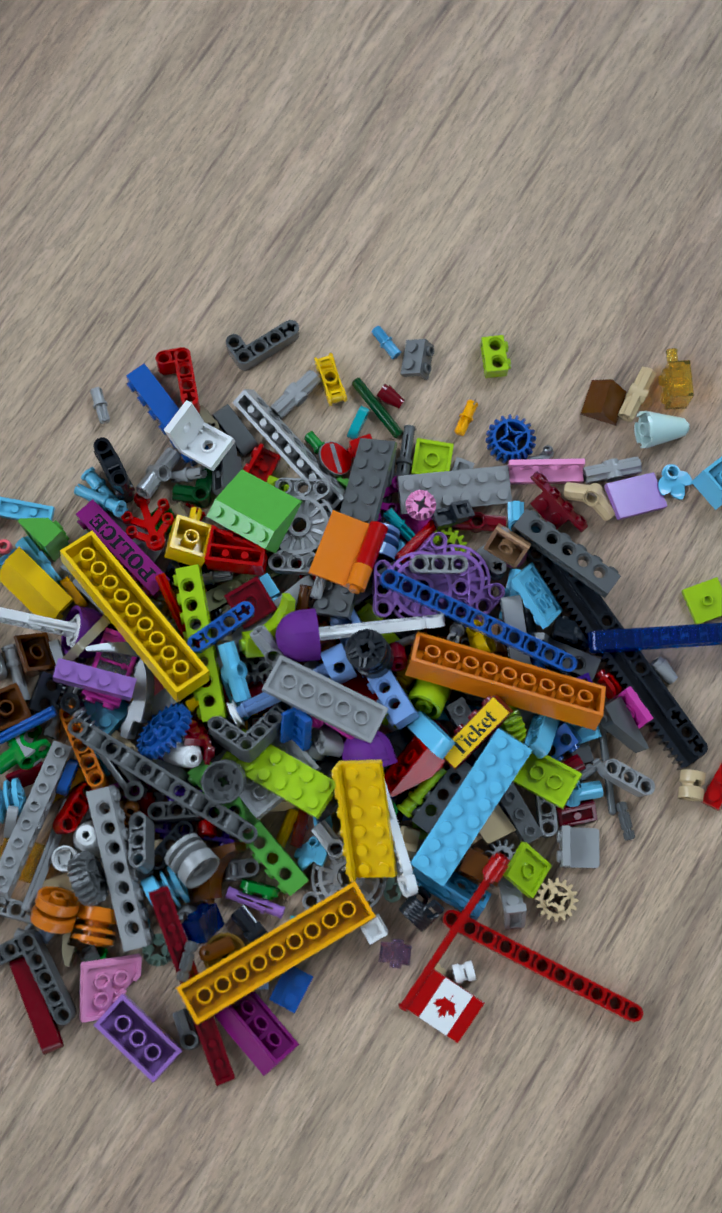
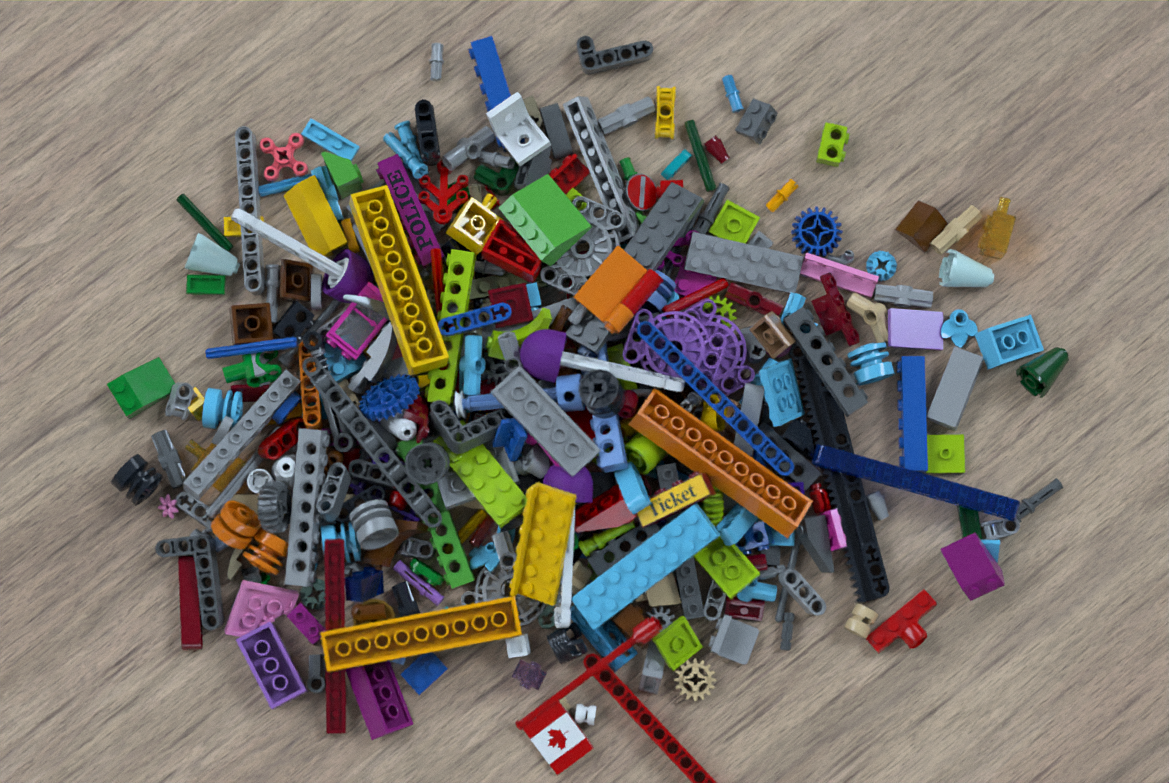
camera: 20 degrees right, 5 degrees up
(78, 648) = (342, 290): dark tan beam -> none
(94, 679) = (342, 327): medium lavender brick -> none
(159, 983) = (306, 623): none -> magenta brick
(180, 362) = (525, 51): red beam -> none
(186, 961) = (338, 612): dark grey axle -> none
(392, 517) = (678, 278): teal axle -> none
(412, 507) = (695, 267): bright pink gear -> none
(447, 560) = (687, 332): light grey beam -> none
(452, 515) = (732, 287): black slope -> none
(542, 636) = (770, 433): dark grey tile -> none
(580, 441) = (882, 256): none -> medium azure gear
(607, 540) = (870, 363): none -> medium azure wheel
(663, 573) = (913, 413): none -> blue brick
(693, 537) = (955, 388): none -> light grey brick

